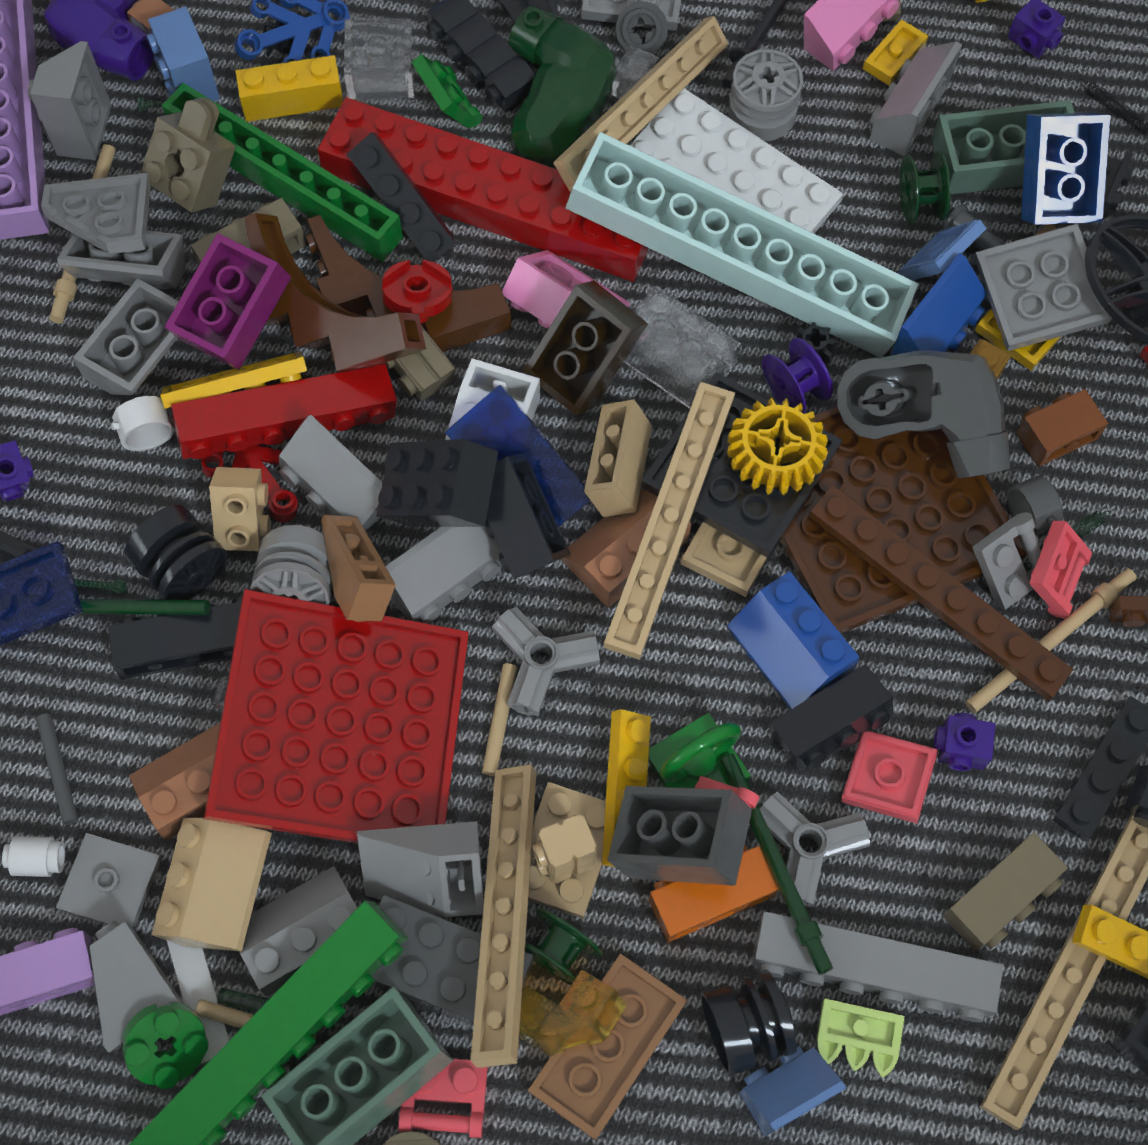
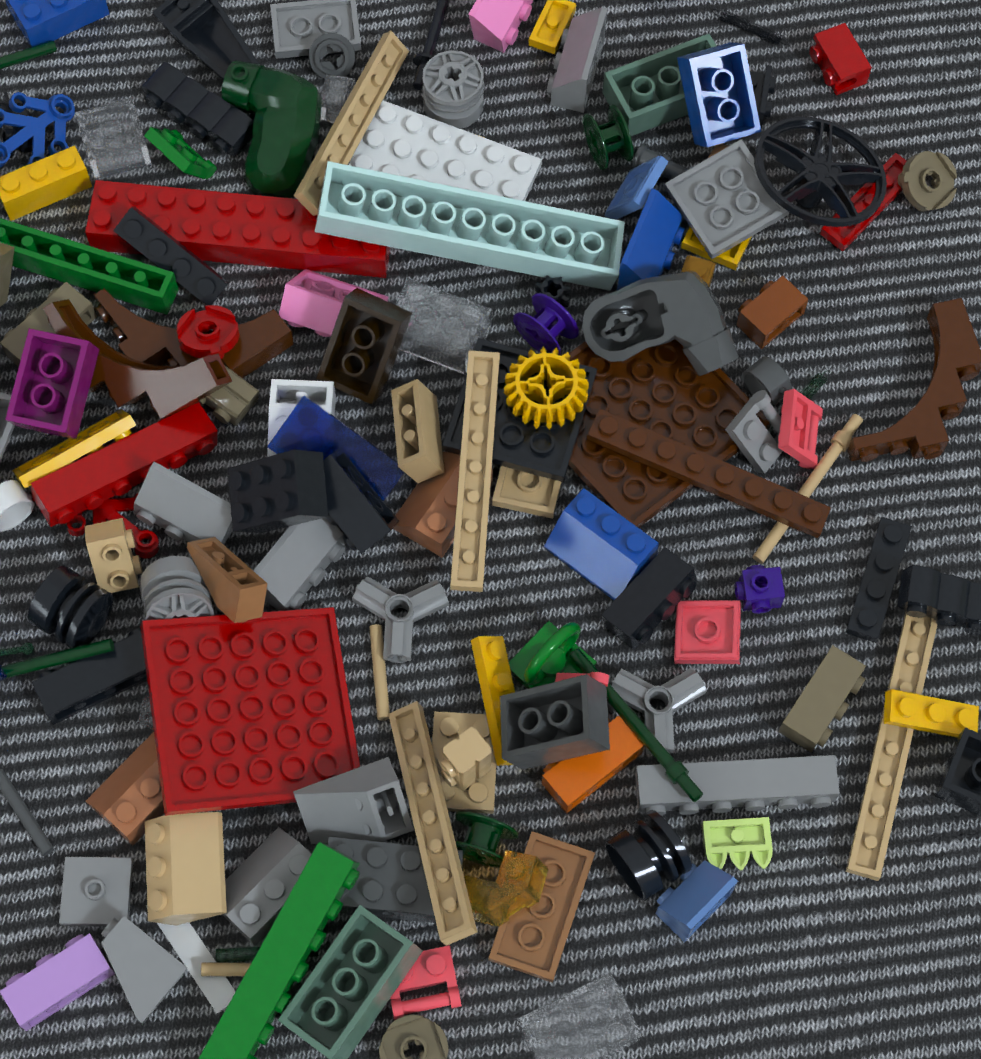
camera: 15 degrees left, 0 degrees up
(33, 856) = (27, 887): white brick -> none
(167, 1066) = (200, 1014): green plate -> none

